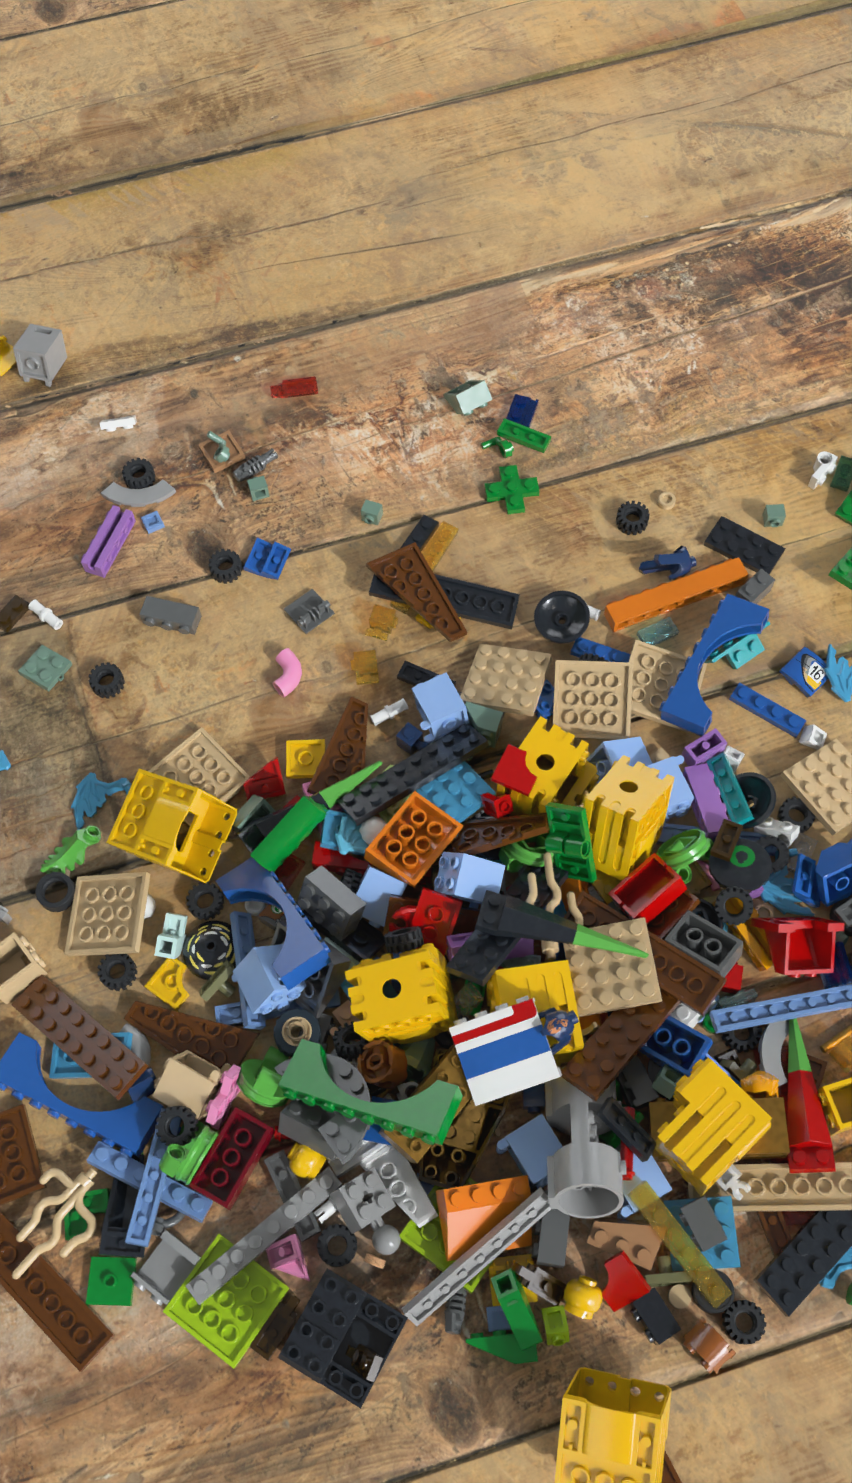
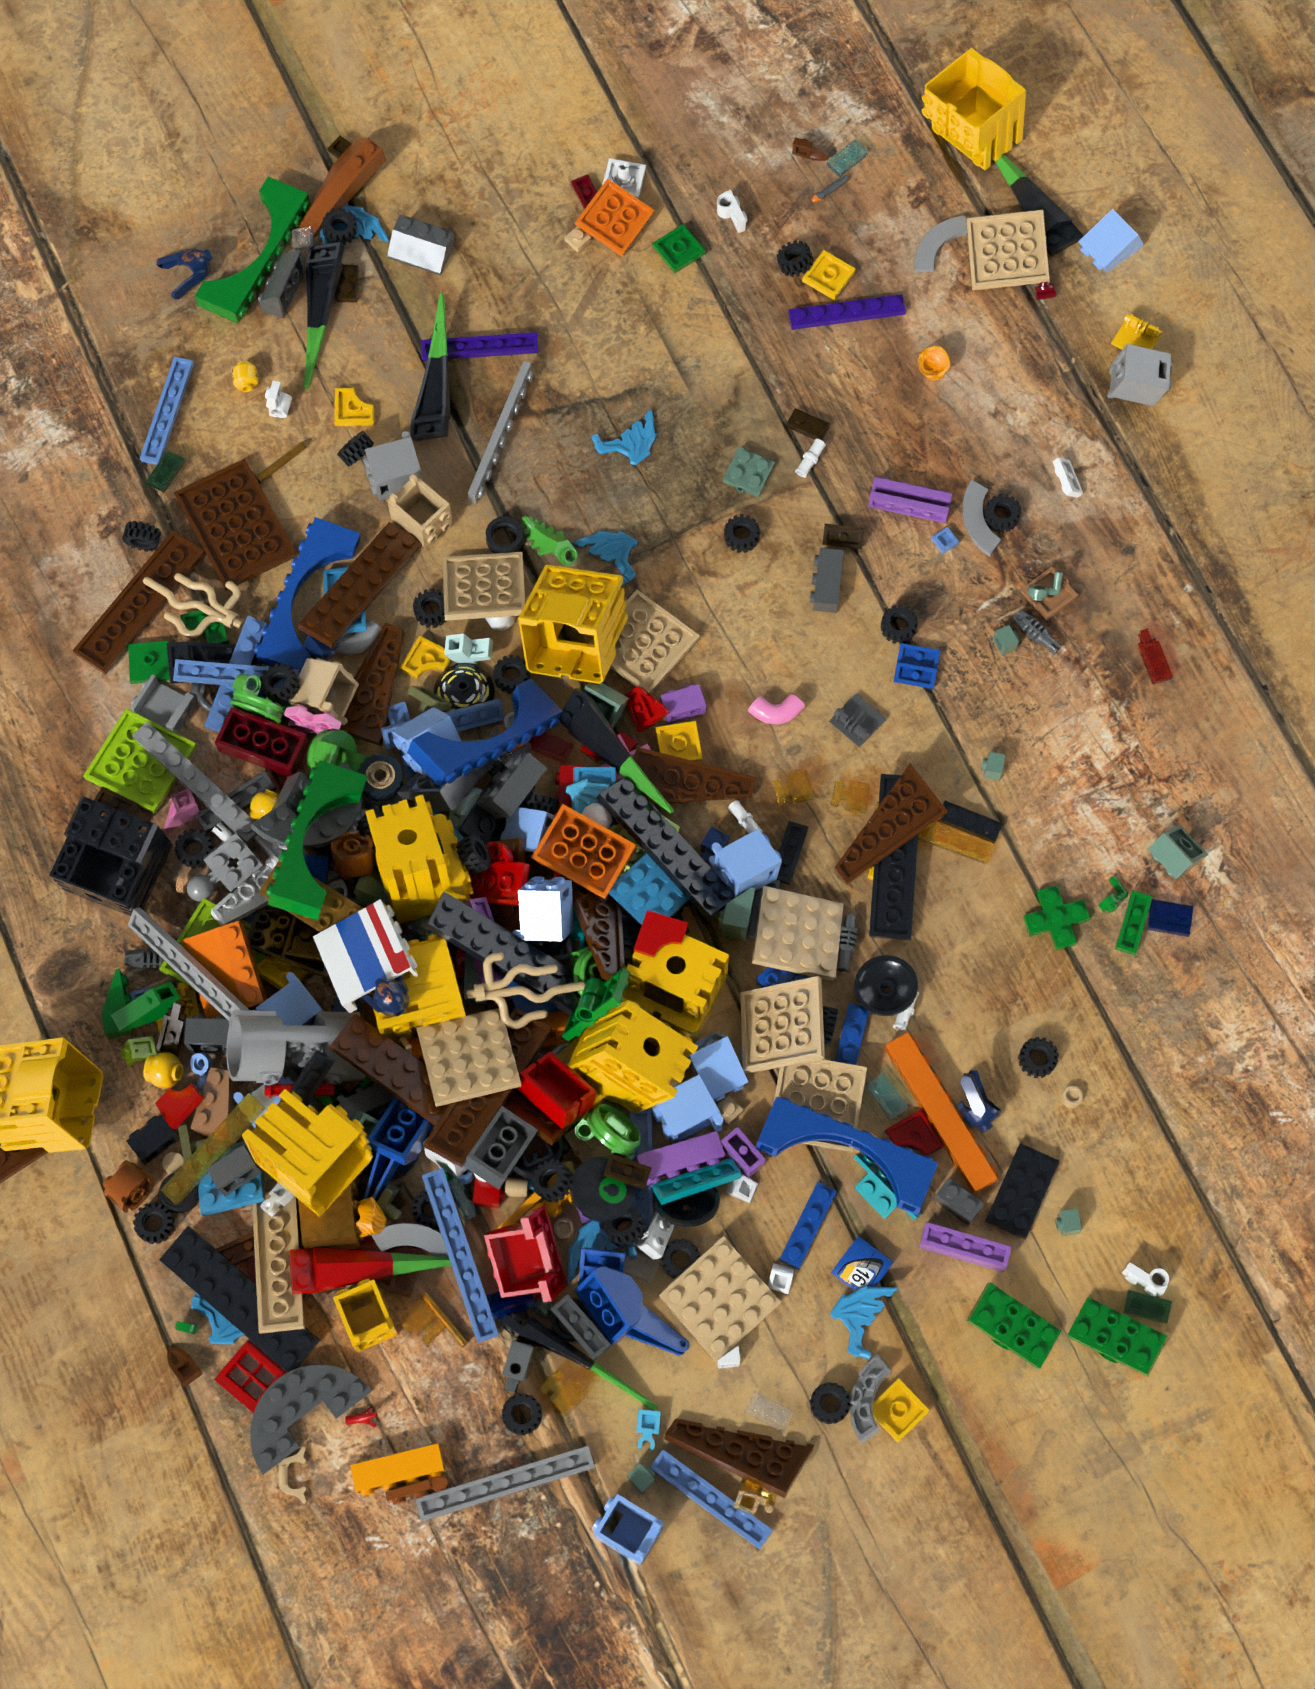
camera: 80 degrees right, 5 degrees up
(130, 597) = (843, 536): none -> dark brown plate
(266, 747) = (683, 703): none -> medium lavender brick
(289, 833) = (580, 734): green brick -> none
(364, 1361) = (90, 878): dark brown hinge -> none
(491, 1162) = (275, 972): none -> yellow tile
(497, 806) = (631, 933): red bracket -> none
(511, 642) = (847, 942): none -> dark grey hinge
(516, 918) = (500, 952): black plate -> none
(593, 1254) = (198, 1067): none -> light blue plate
(690, 618) = (915, 1133): none -> red tile
(794, 590) = (965, 1247): none -> medium lavender brick

